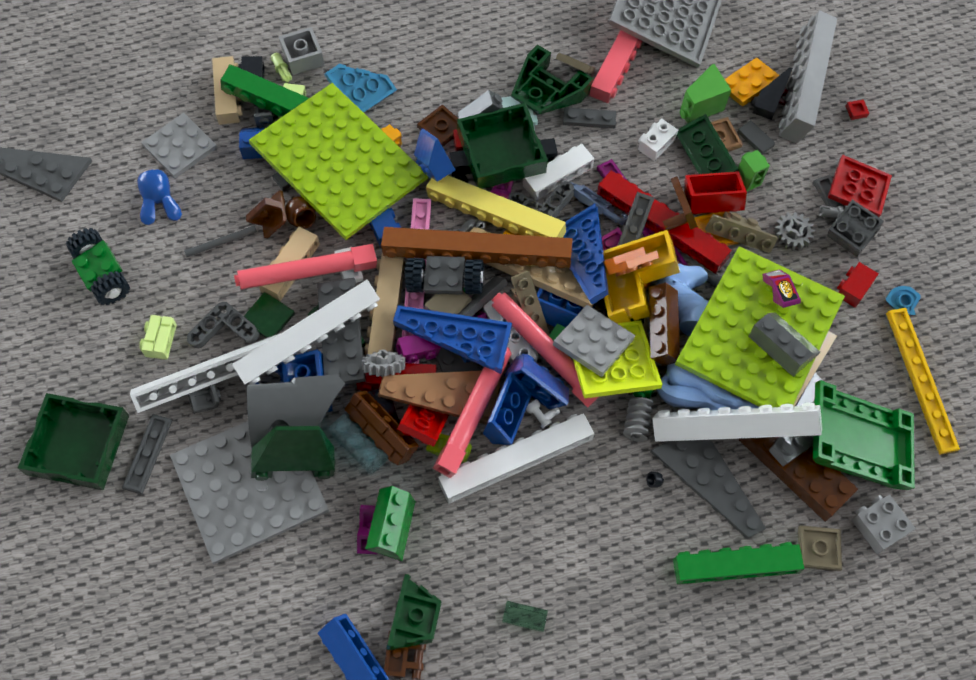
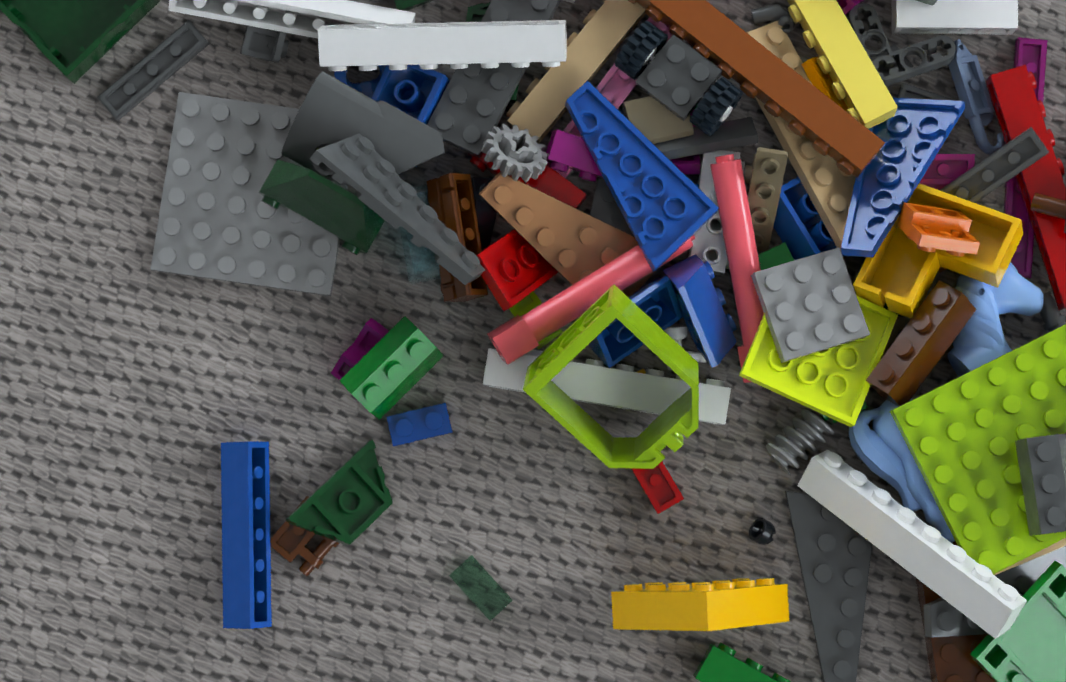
camera: 40 degrees right, 20 degrees up
(336, 419) = (397, 202): none -> dark grey wing
(427, 548) = (419, 424): none -> blue plate
(566, 450) = (664, 431): none -> lime container
(578, 490) = (658, 487): none -> red plate
(648, 536) = (701, 607): none -> yellow piece

